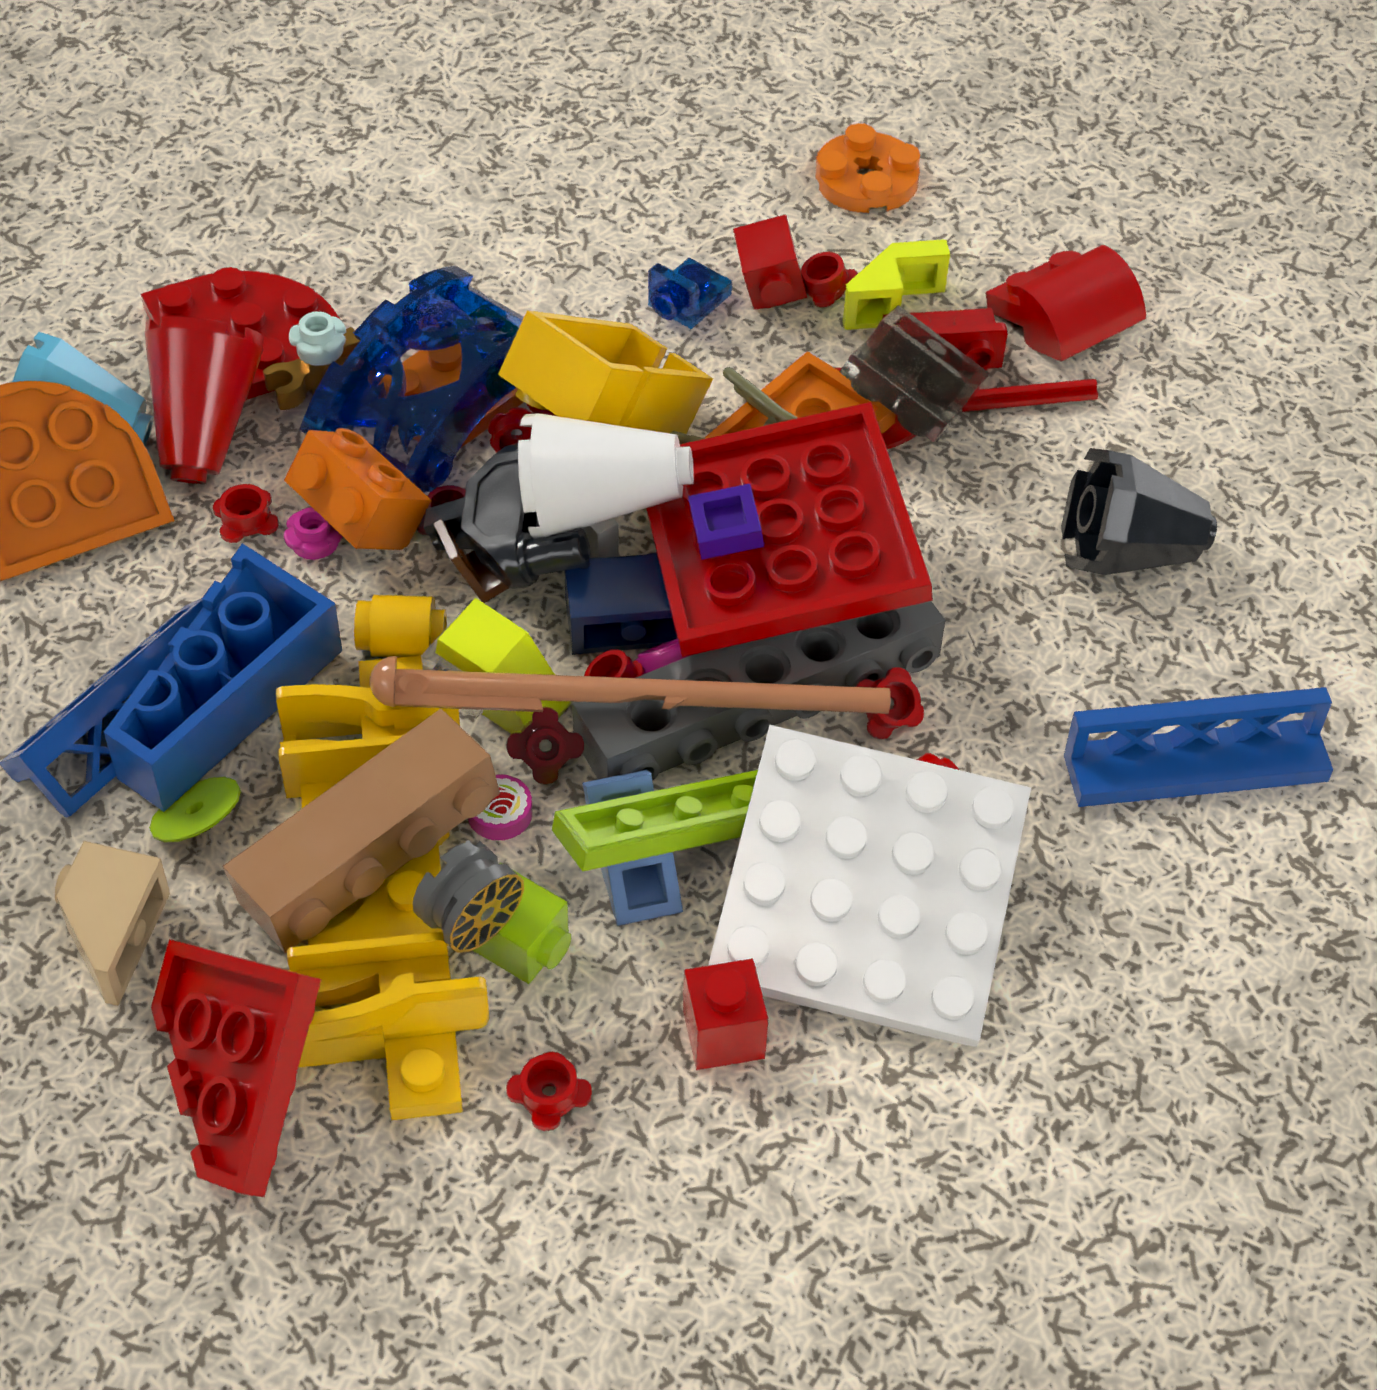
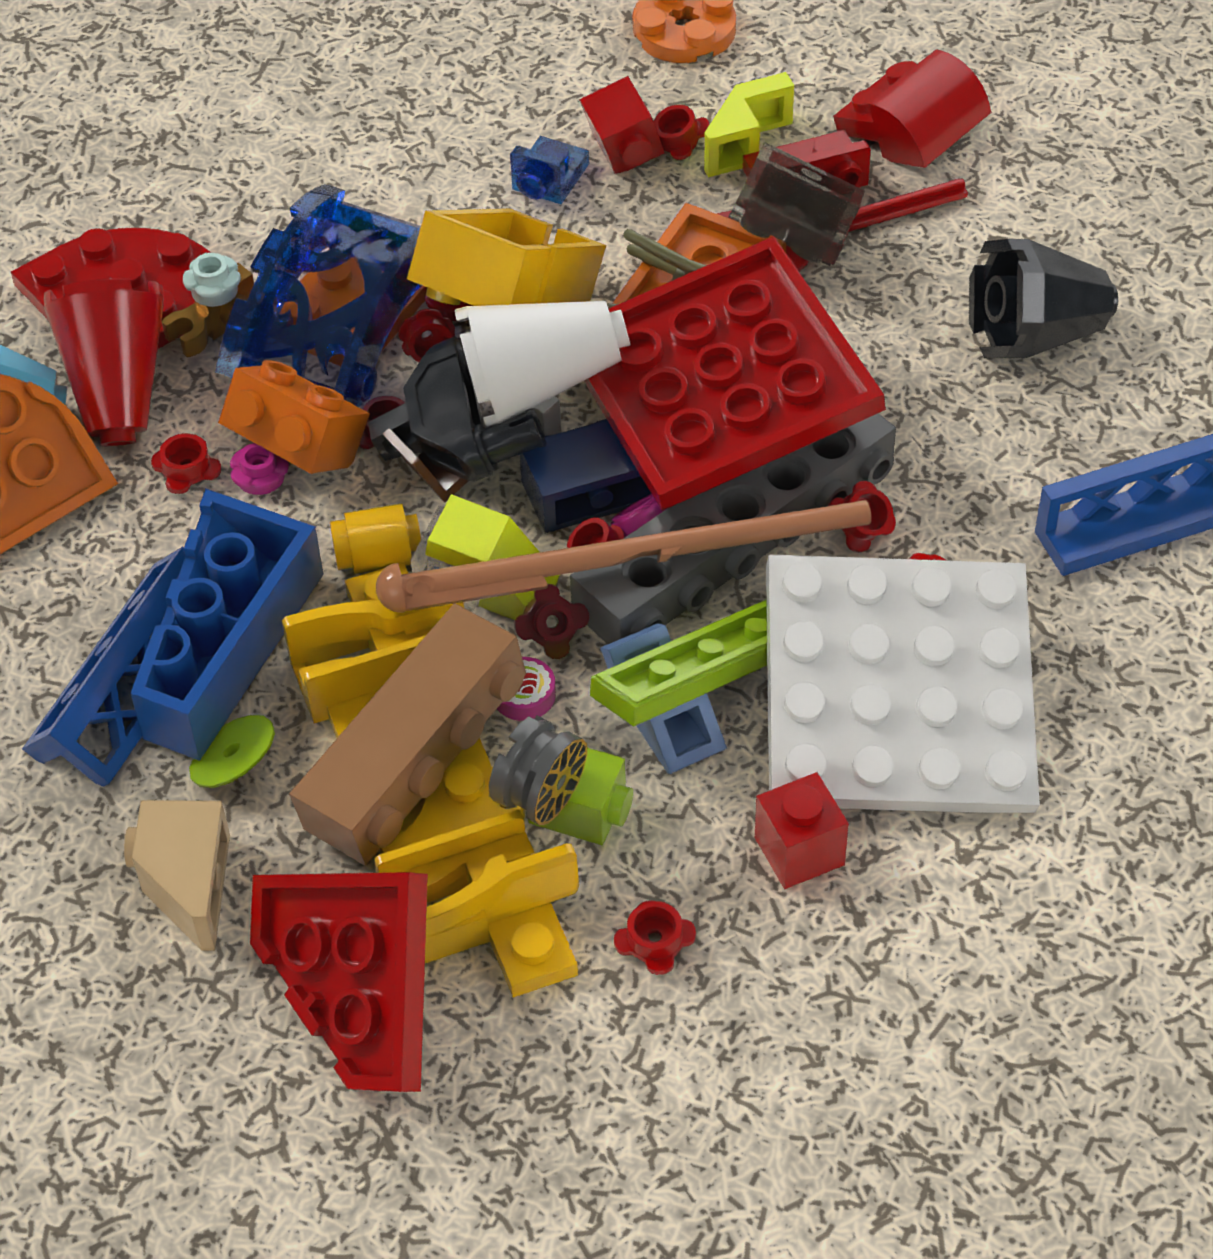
camera: 10 degrees left, 0 degrees up
(726, 521) = (673, 373): dark purple plate -> none

